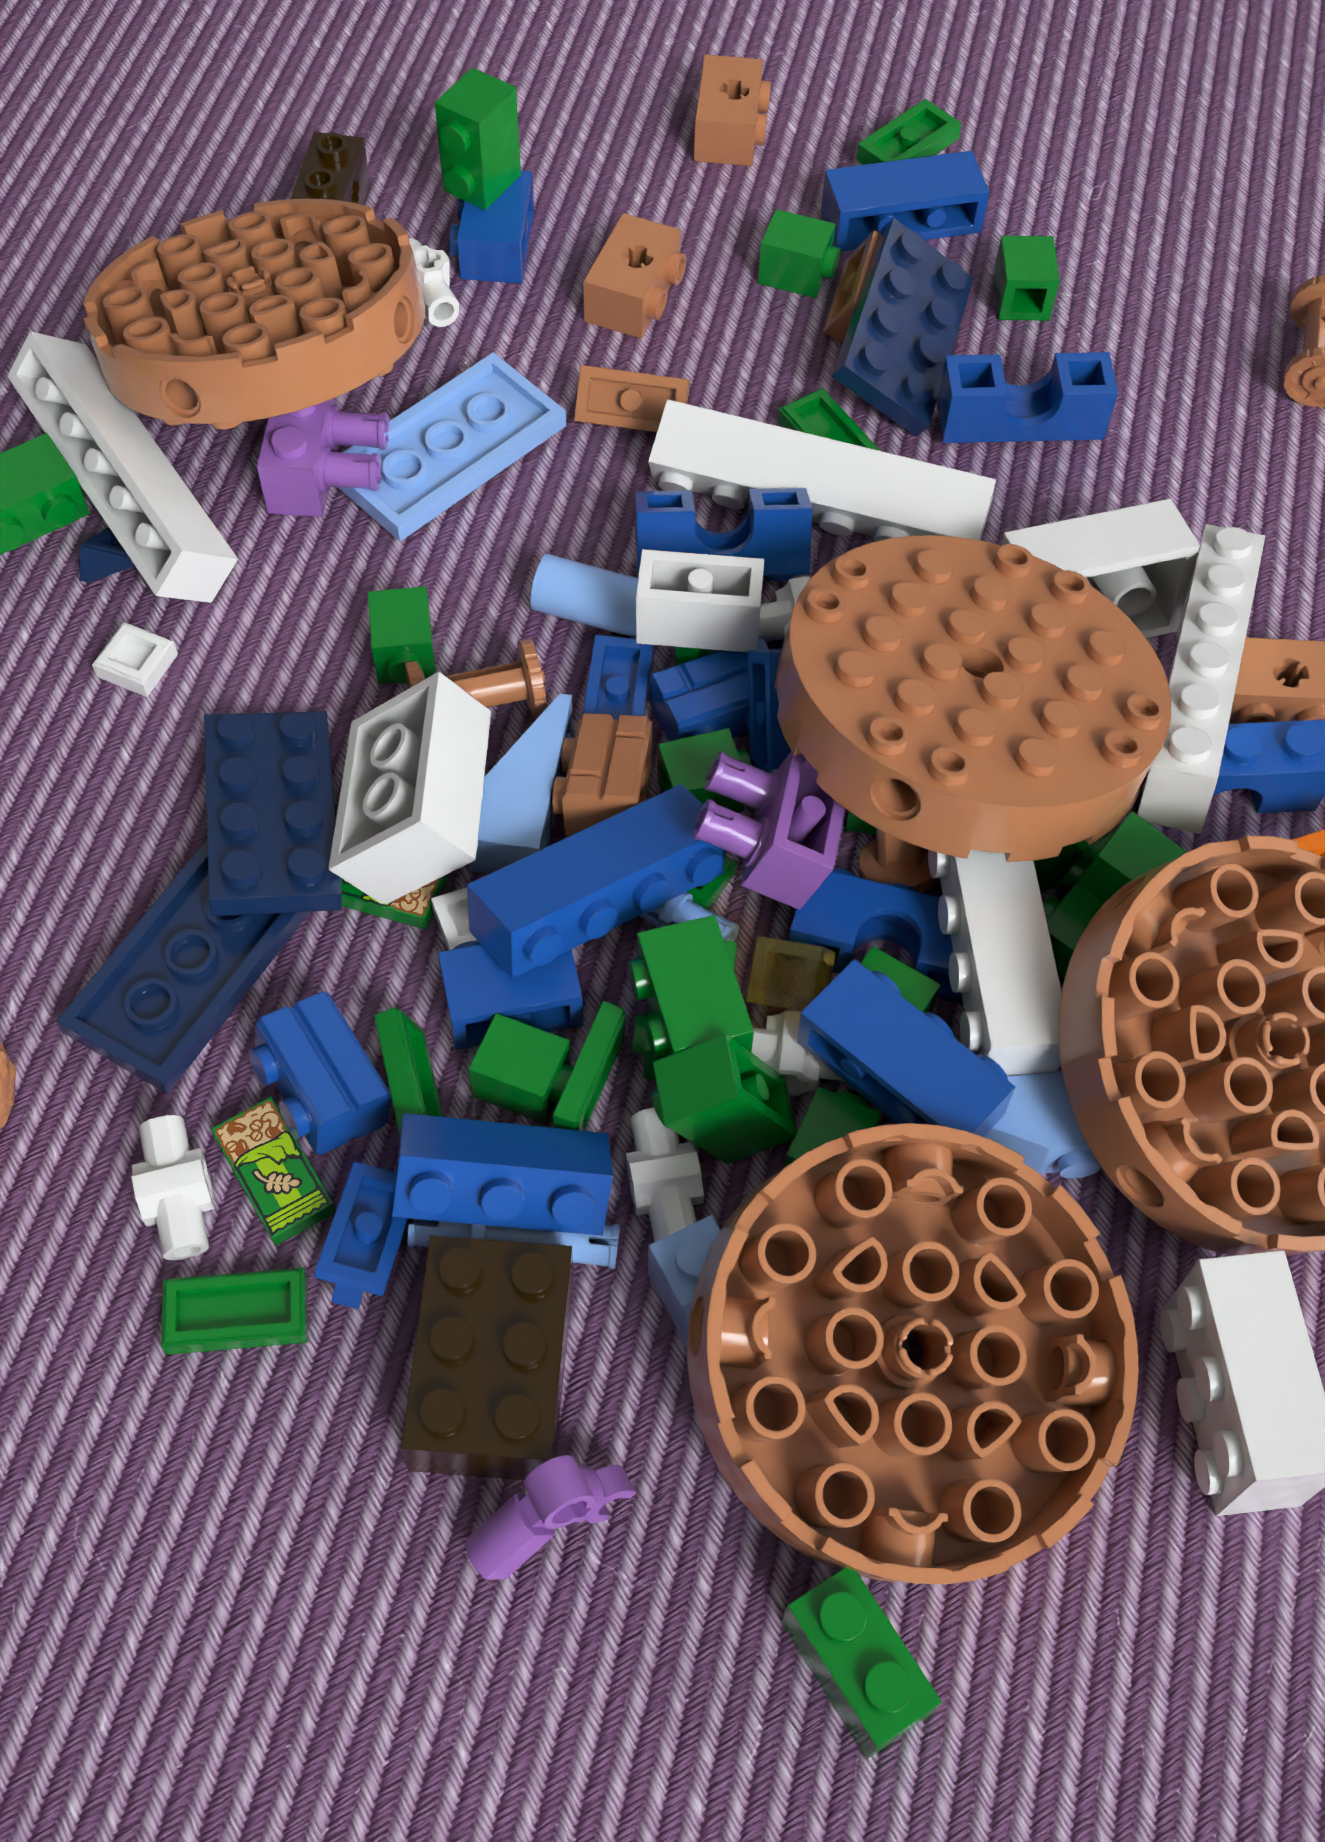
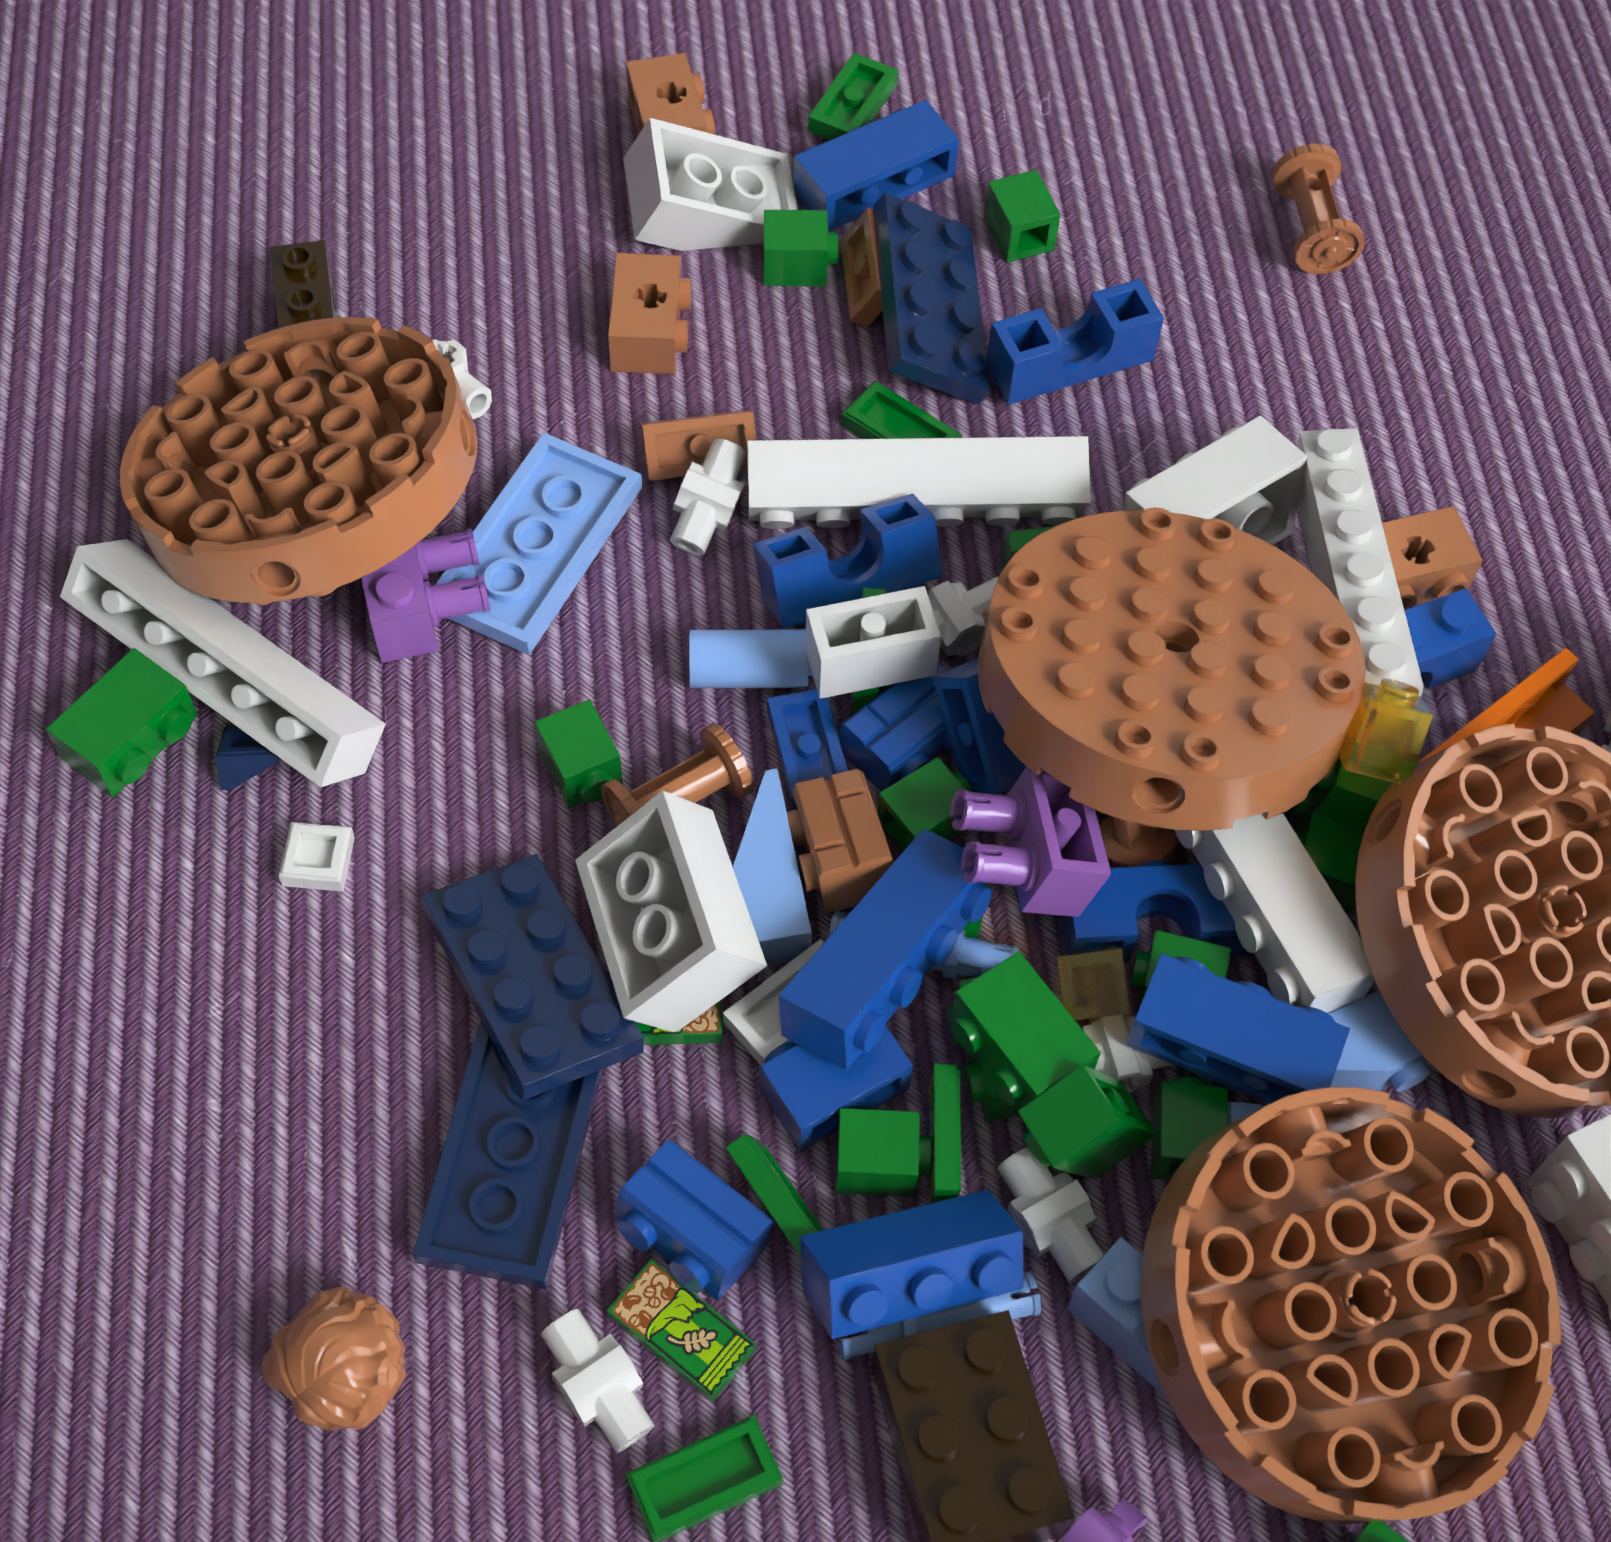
camera: 20 degrees left, 0 degrees up
(362, 1237) = (802, 1365): blue plate -> none
(478, 138) = (456, 217): green brick -> none
(495, 240) = (487, 295): blue brick -> none
(618, 446) = (708, 496): none -> white axle
(731, 180) = (702, 188): none -> white slope
(1160, 810) = (1386, 731): none -> clear yellow brick

